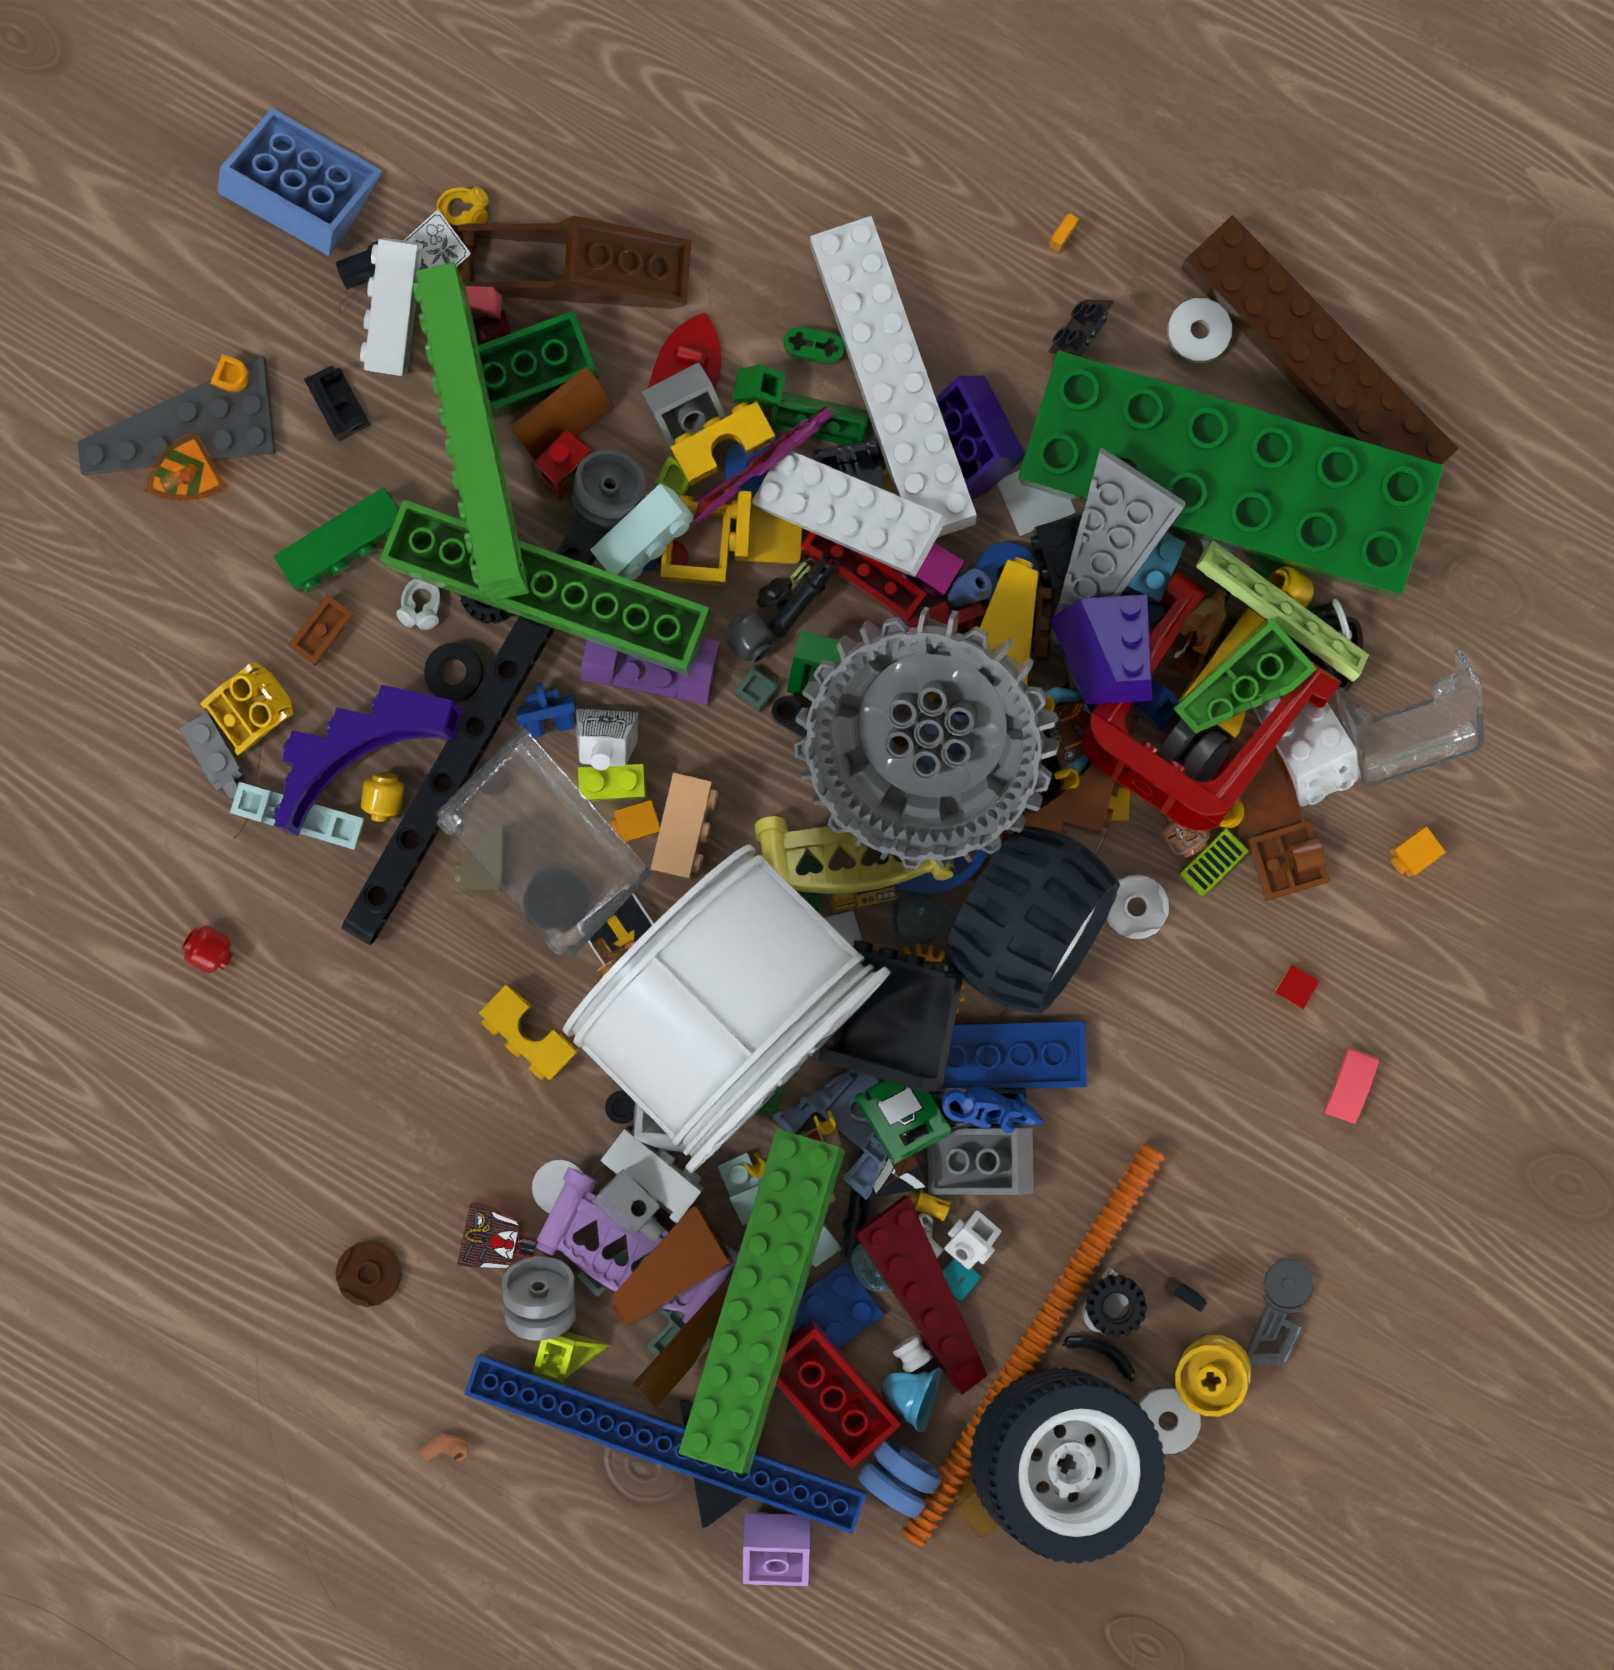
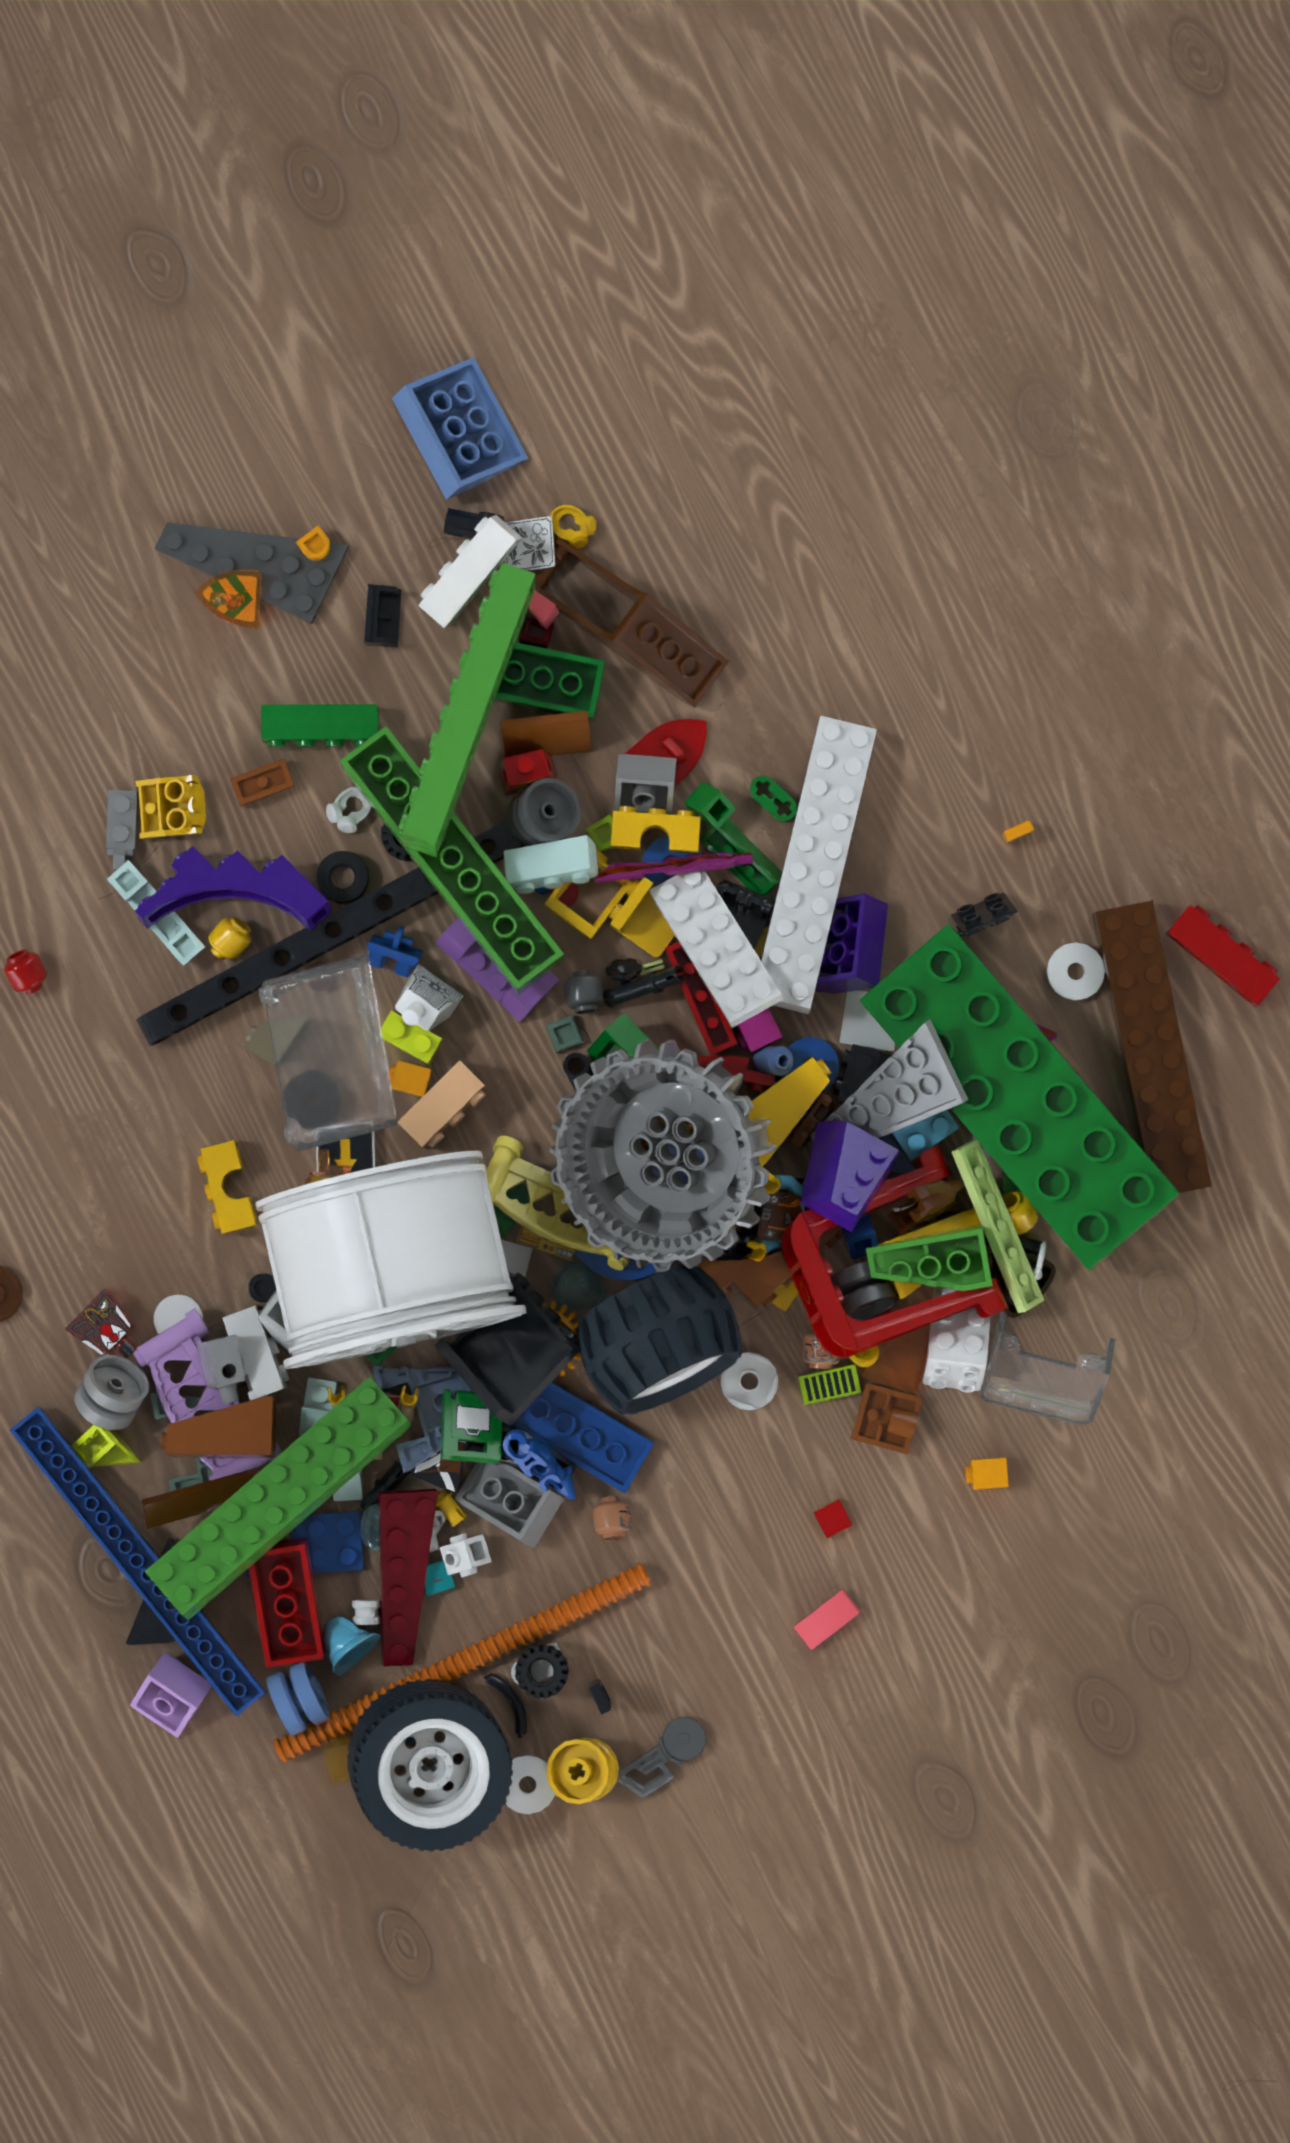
camera: 30 degrees right, 0 degrees up
(1089, 1118) = (612, 1518): none -> nougat head
(1329, 228) = (1222, 955): none -> red brick

